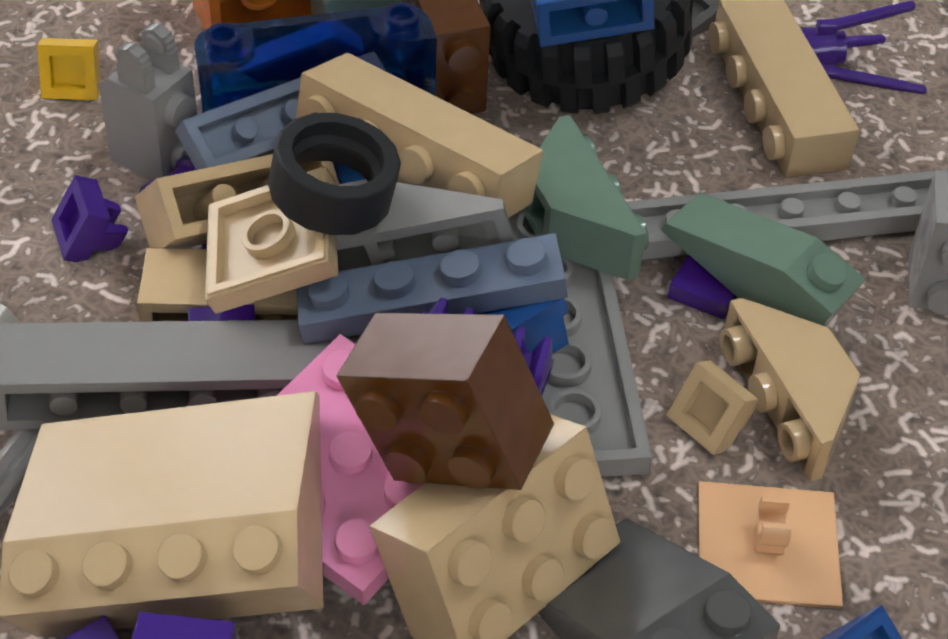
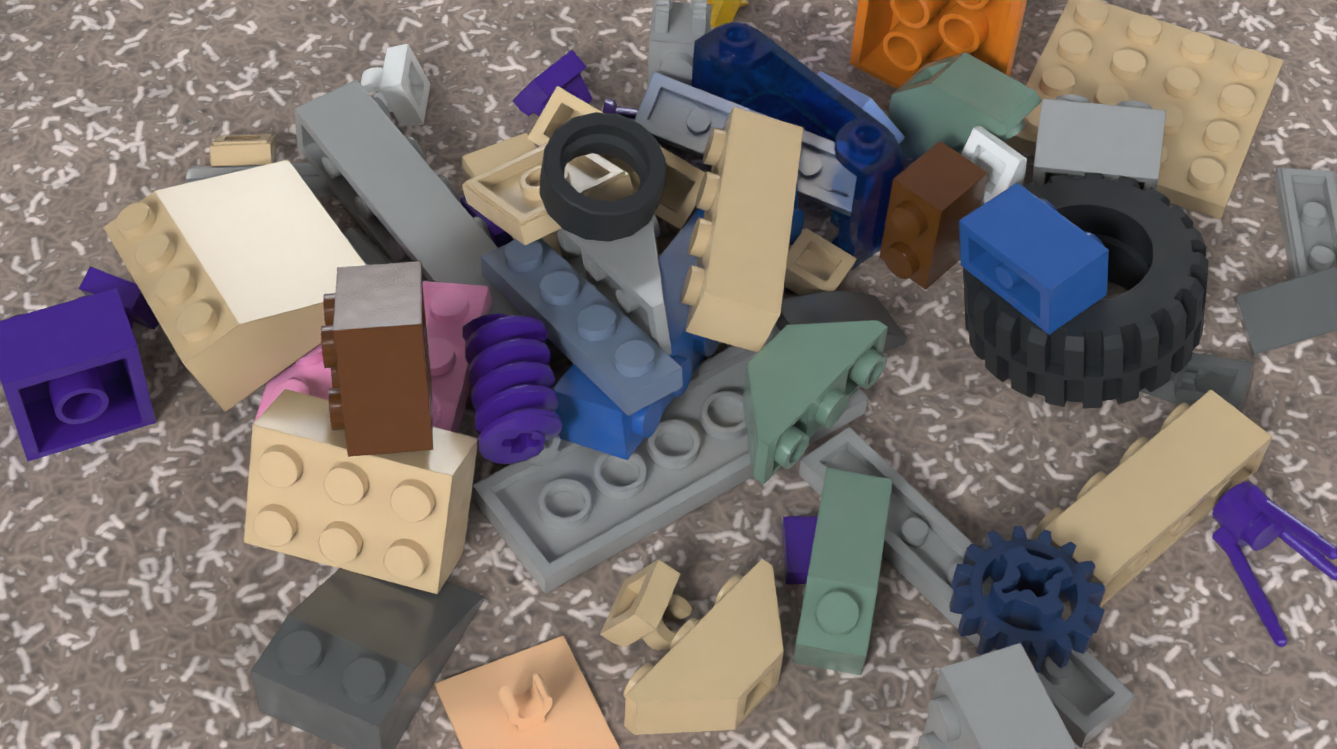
camera: 60 degrees right, 5 degrees up
(857, 172) = (1027, 597): none -> dark blue gear

